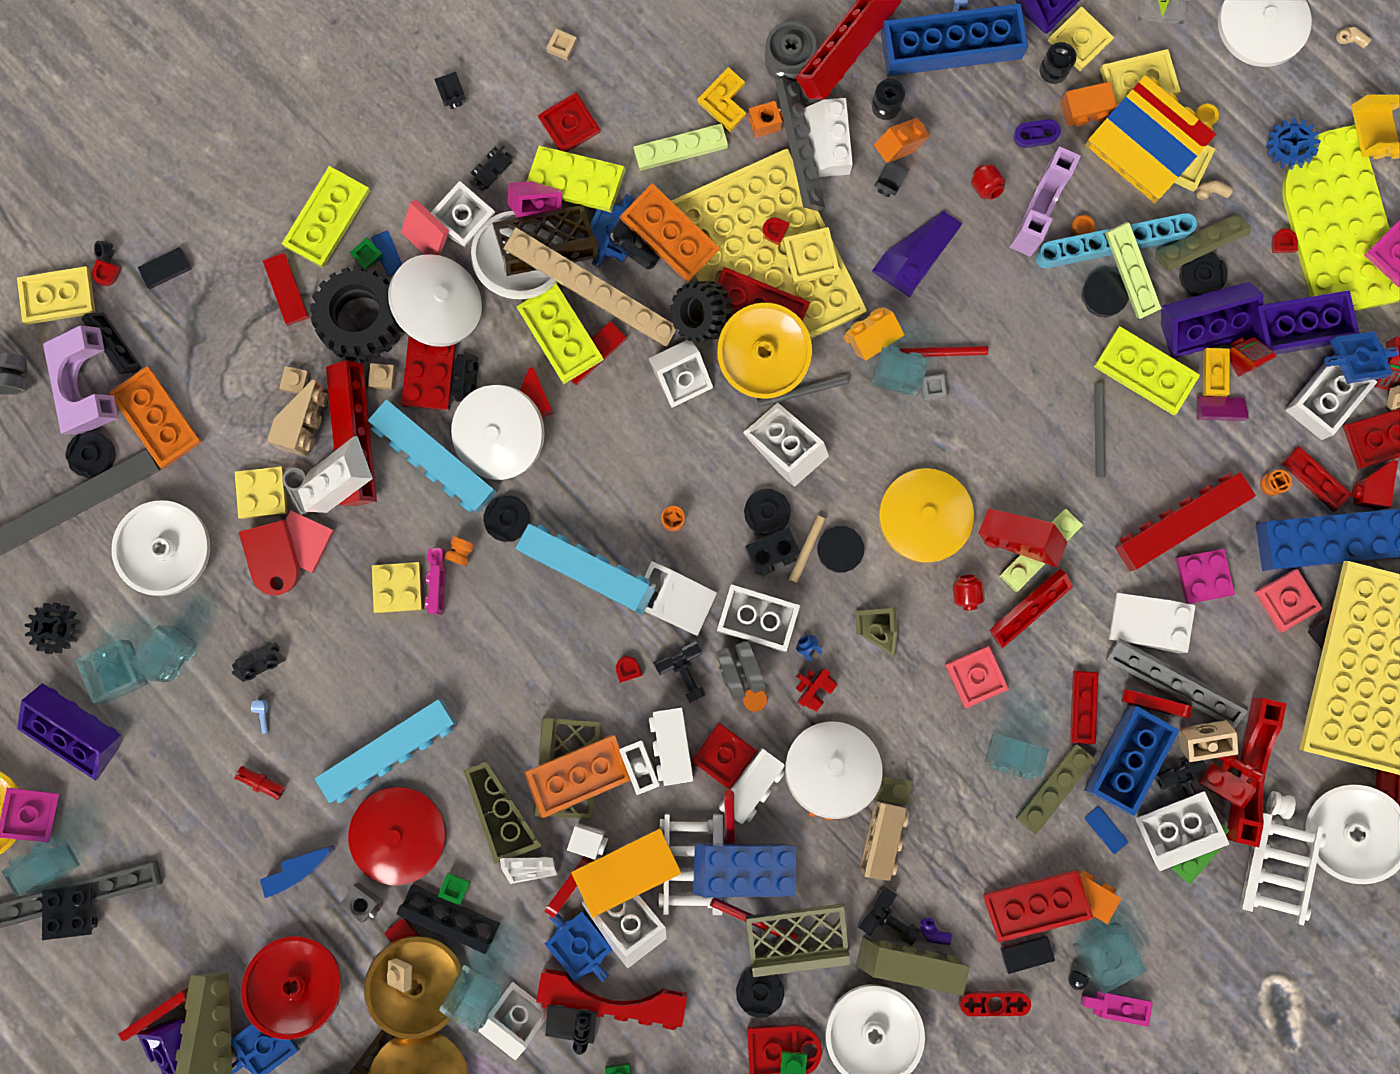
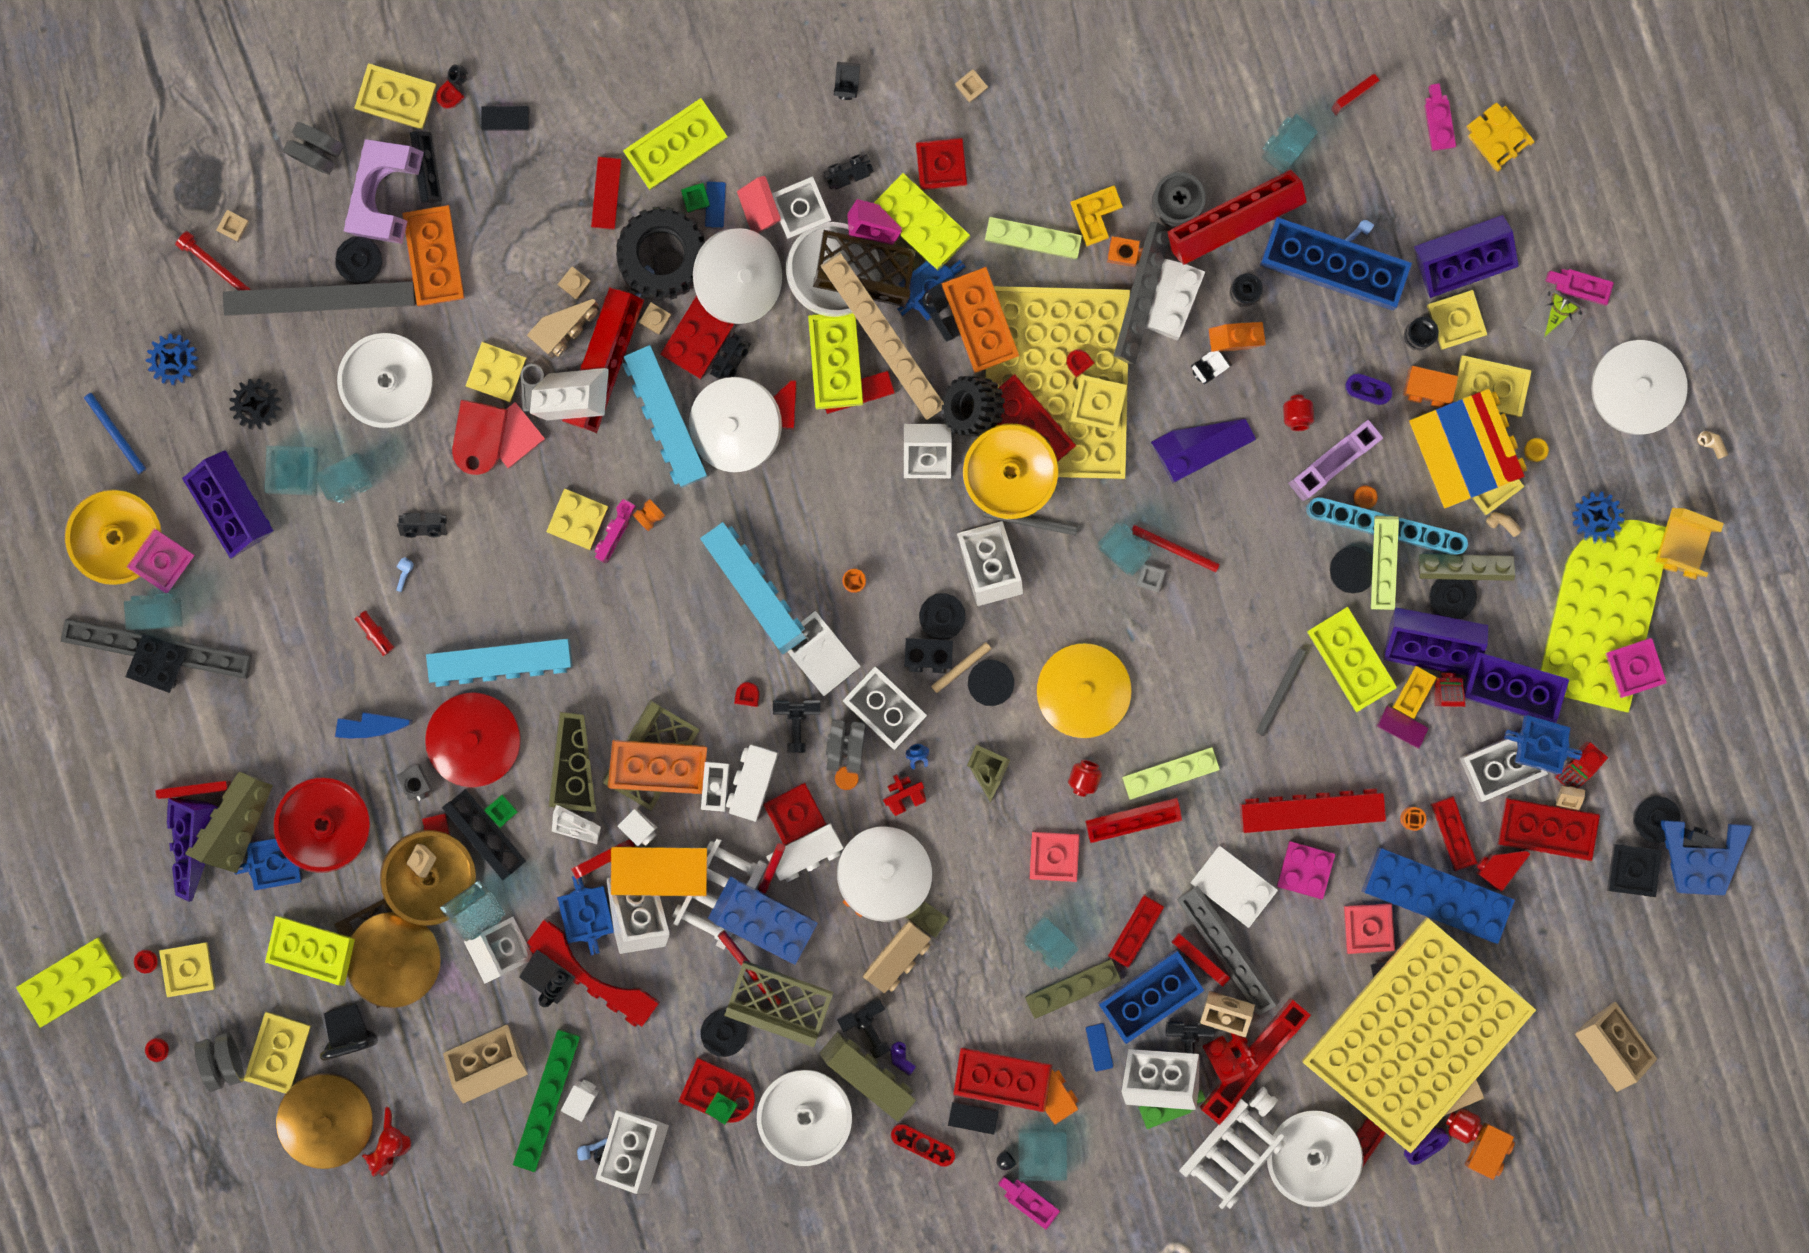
camera: 30 degrees right, 5 degrees up
(506, 518) = (705, 505): black tile -> none
(874, 333) = (1119, 503): light orange brick -> none
(1023, 536) = (1157, 753): red wedge -> none
(1284, 241) = (1544, 603): red tile -> none

